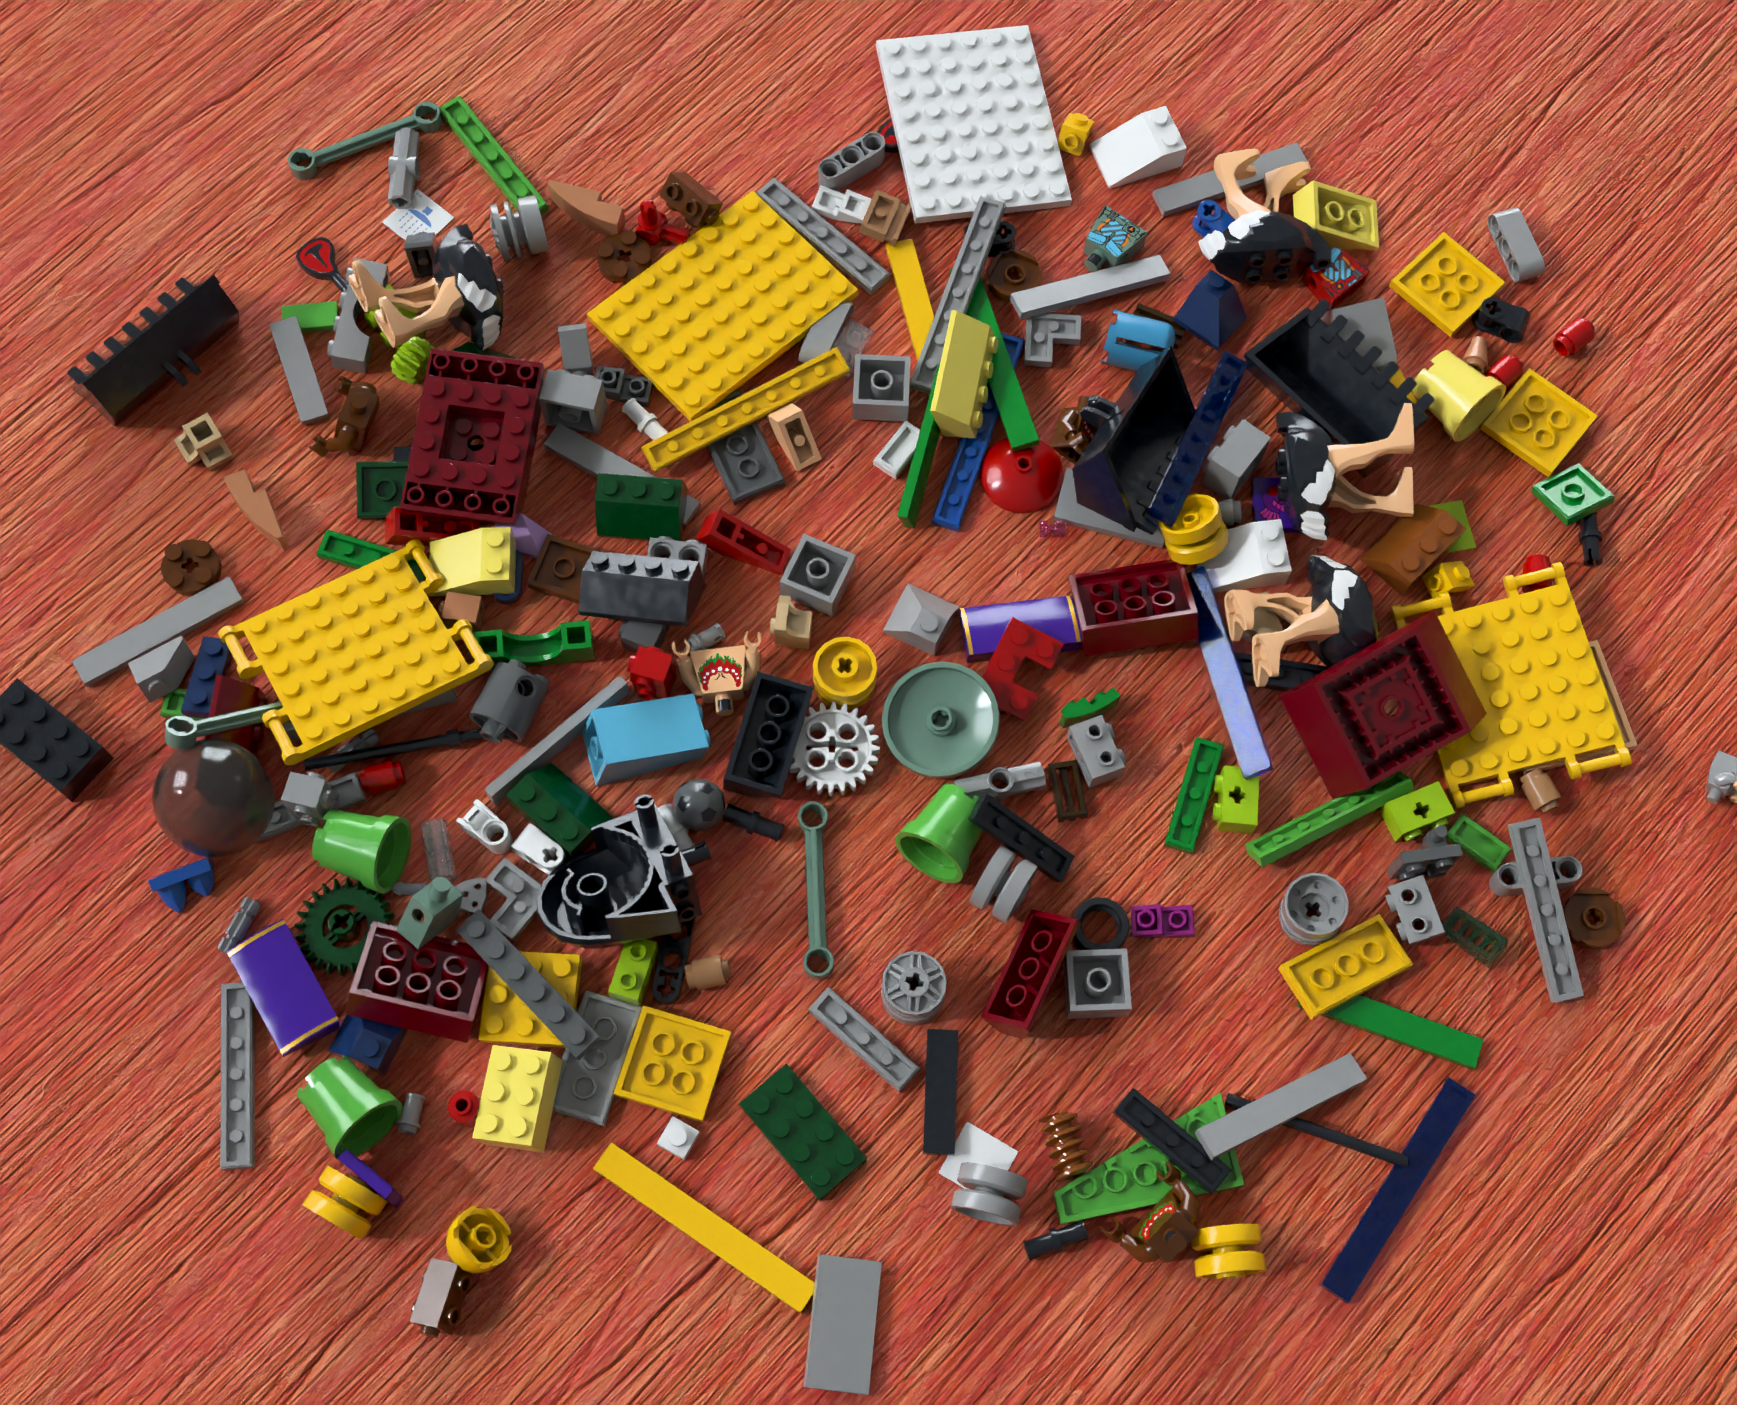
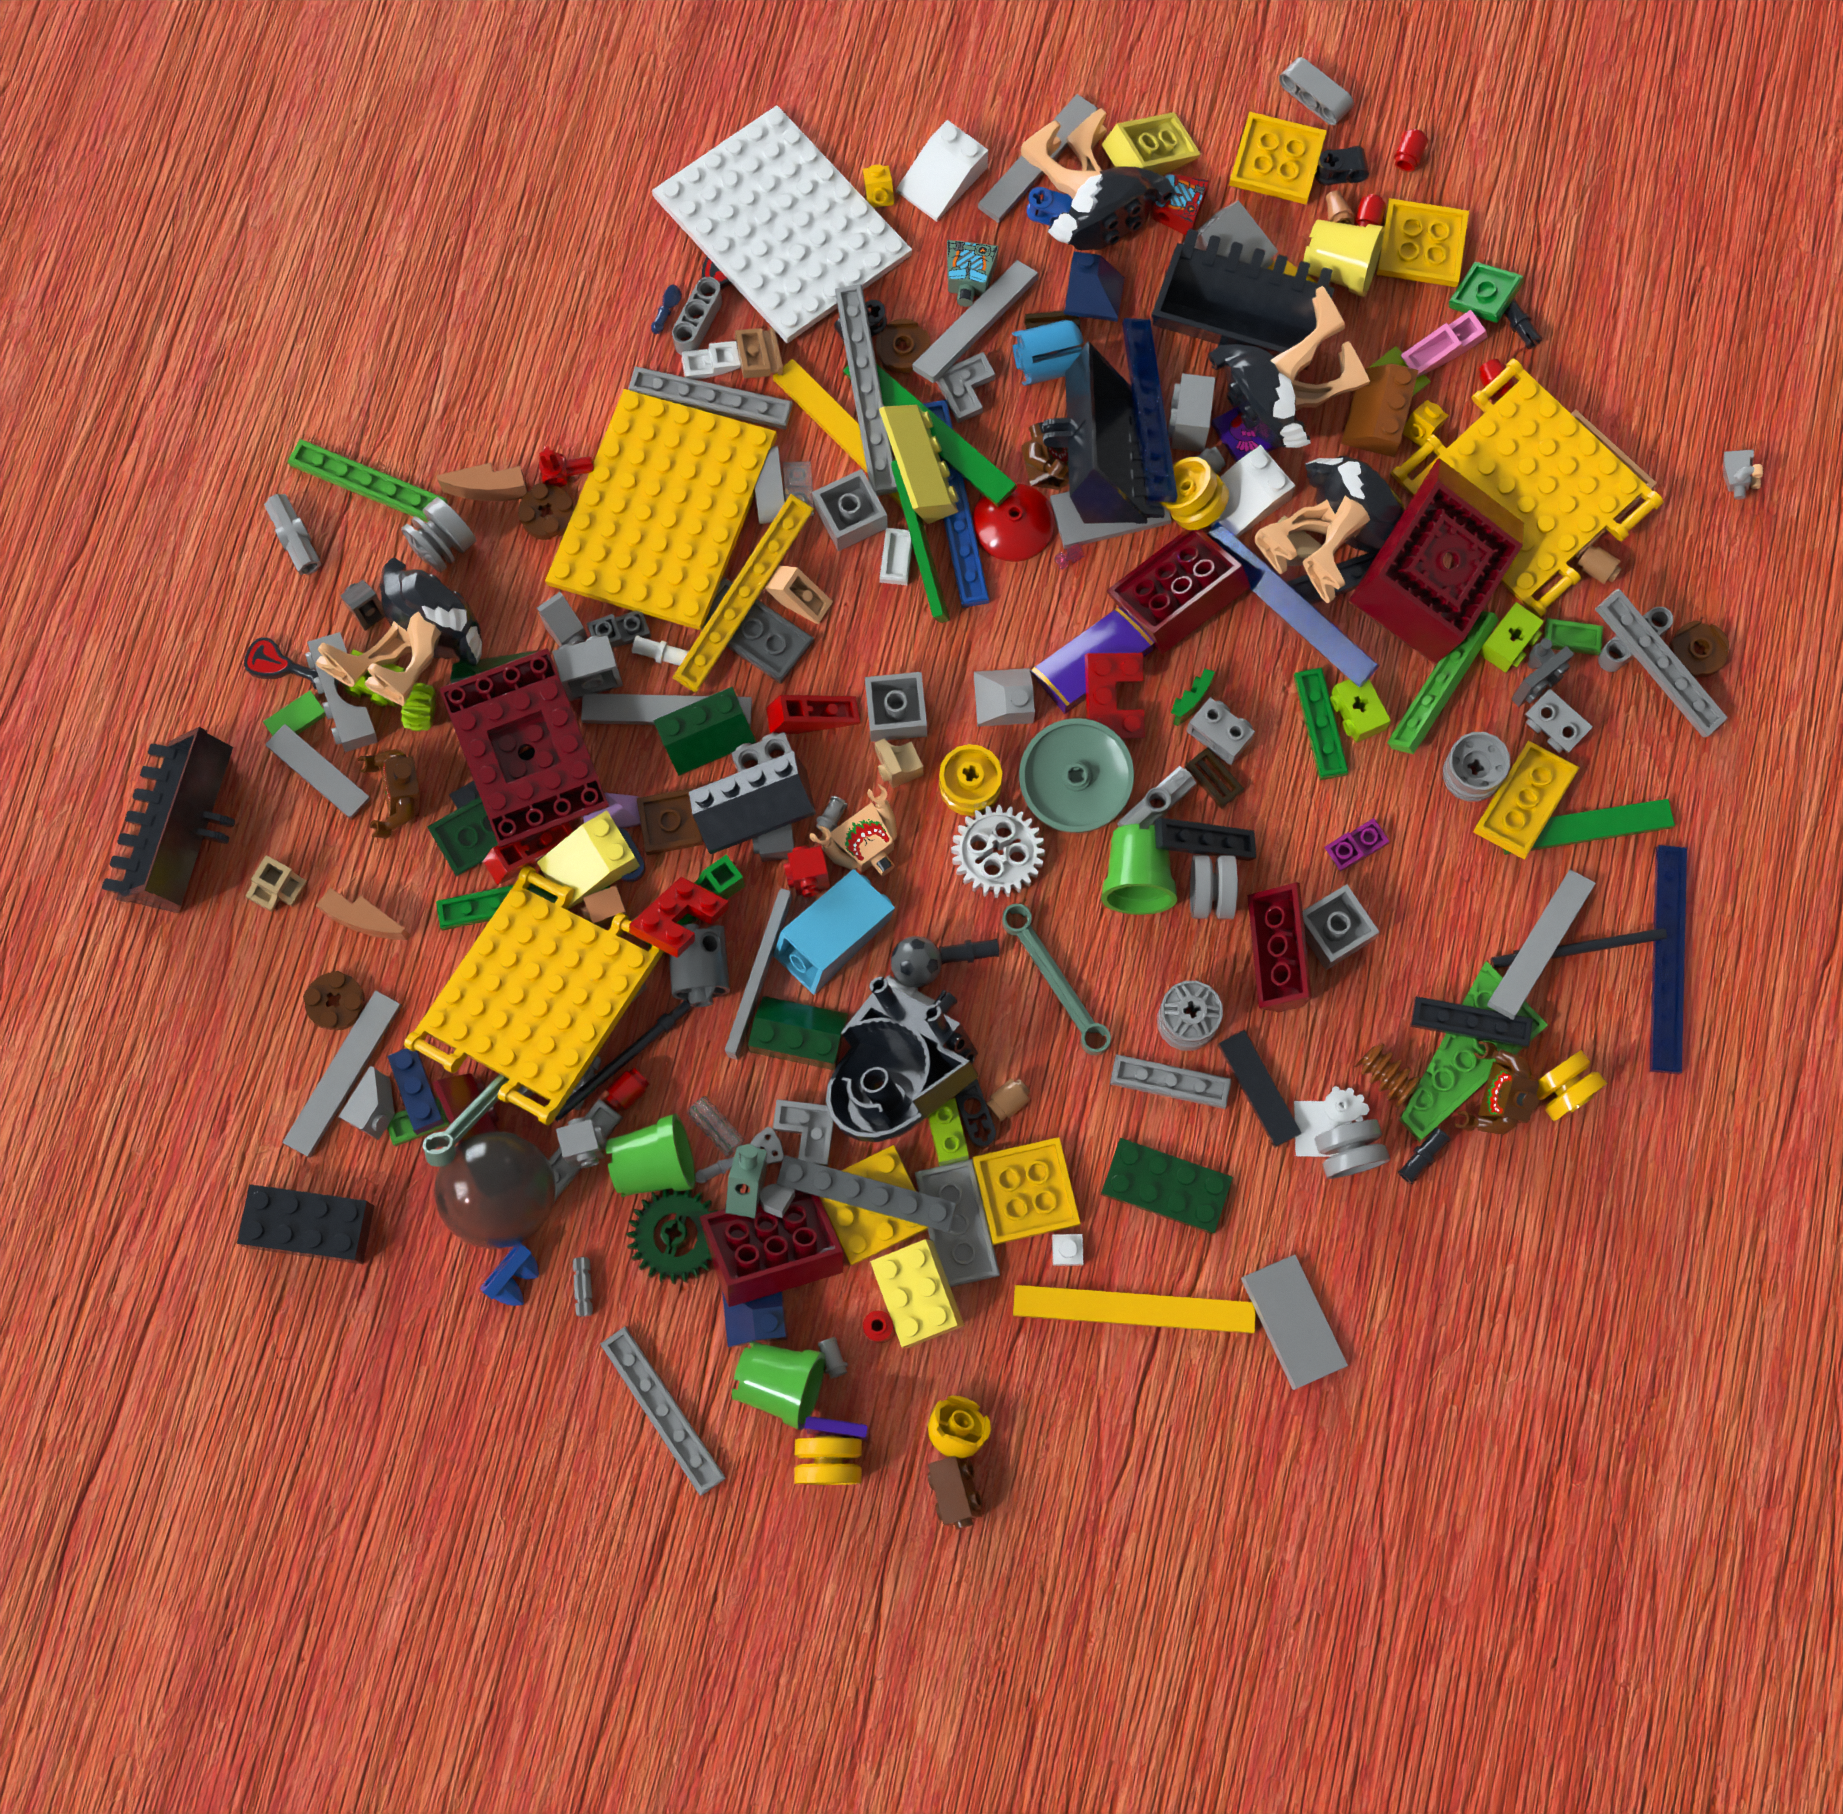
camera: 25 degrees left, 5 degrees up
(283, 988) = (657, 1316): dark purple slope -> none
(363, 141) = (238, 527): sand green piece -> none
(420, 217) = (334, 575): white sticker -> none
(448, 944) = (776, 1199): none -> light grey tile
(482, 825) = (738, 1082): white piece -> none
(492, 645) = (659, 920): none -> red plate
(538, 848) = (798, 1076): white piece -> none
(690, 199) = (575, 427): reddish brown brick -> none
(767, 737) = (939, 871): black slope -> none
(838, 138) = (671, 297): none -> dark blue piece
(1009, 1152) = (1344, 1106): none -> white piece
(1114, 910) = (1323, 862): black tyre -> none
(1468, 945) = (1615, 707): clear green slope -> none
(1507, 521) = (1445, 344): none -> bright pink slope

